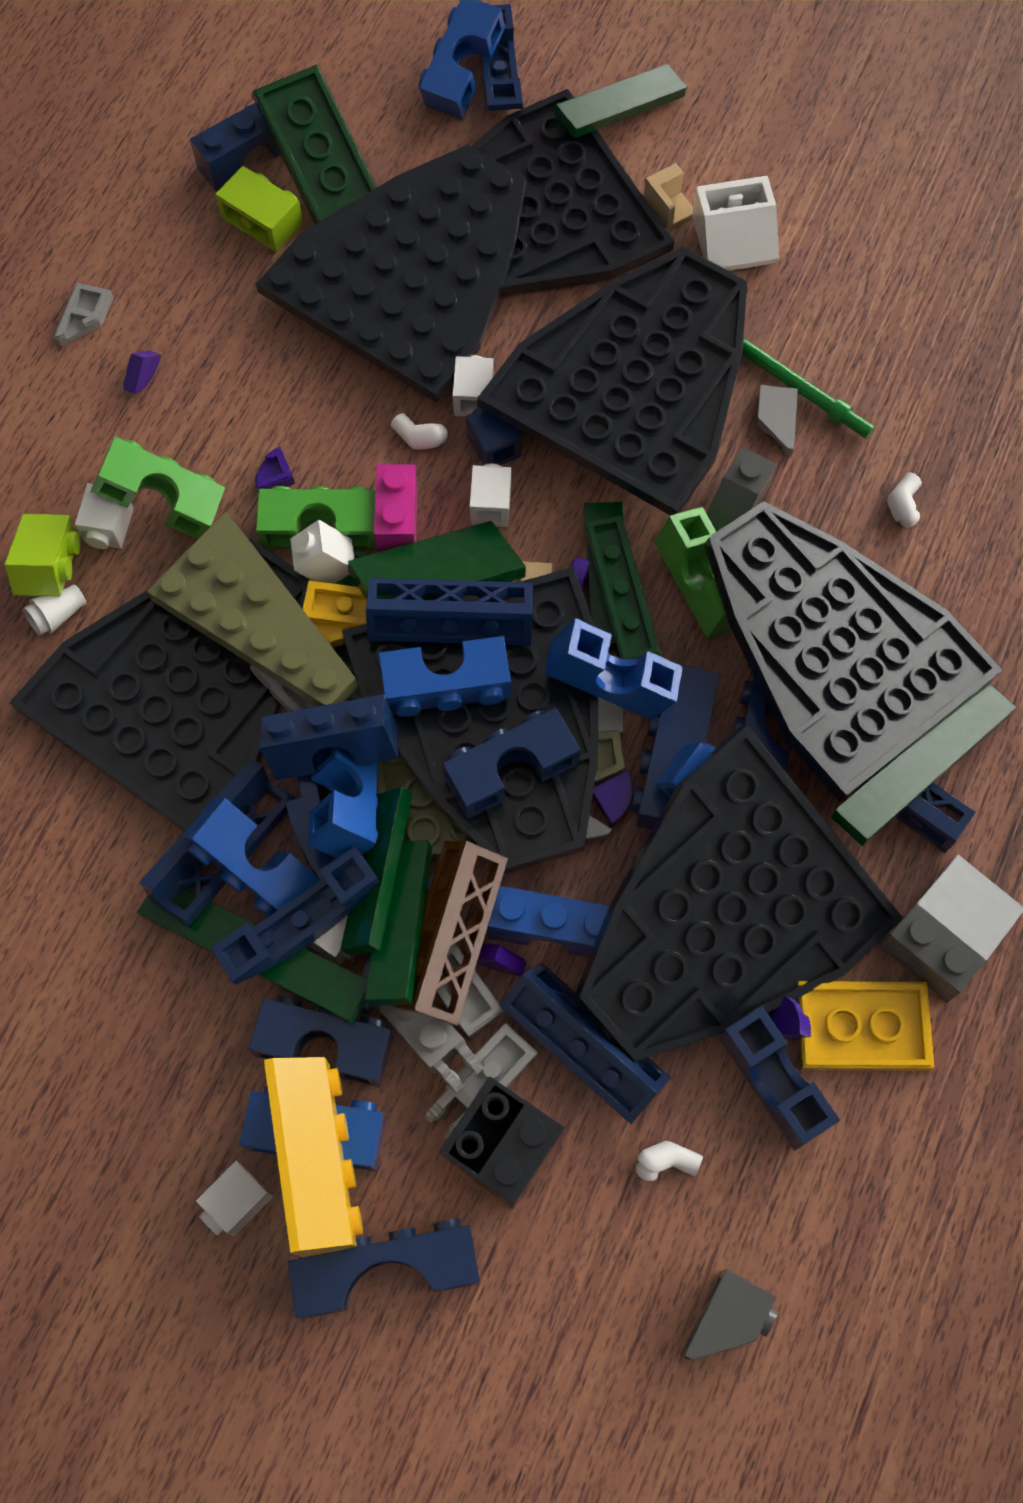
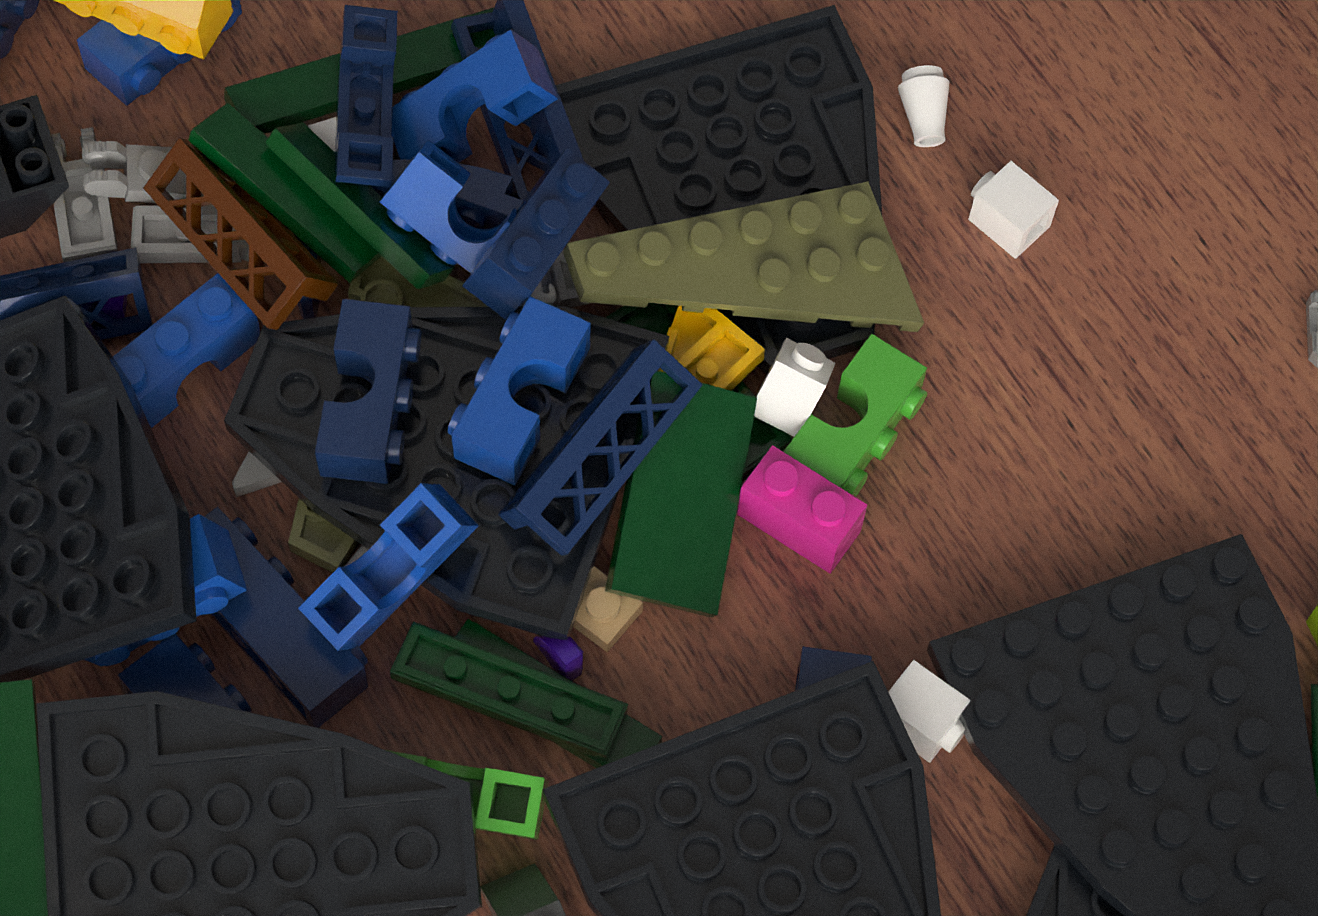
camera: 120 degrees right, 5 degrees down
(42, 555) = (995, 113): lime brick -> none
(140, 370) = (1204, 357): dark purple tile -> none
(190, 495) = (1037, 234): bright green arch -> none
(274, 471) = (959, 423): dark purple tile -> none
(287, 1027) = (267, 46): dark blue arch -> none
(419, 436) = (897, 609): white arm -> none
(490, 495) = (749, 631): white brick -> none
(501, 959) = (184, 282): dark purple tile -> none
(614, 797) = (269, 520): dark purple tile -> none

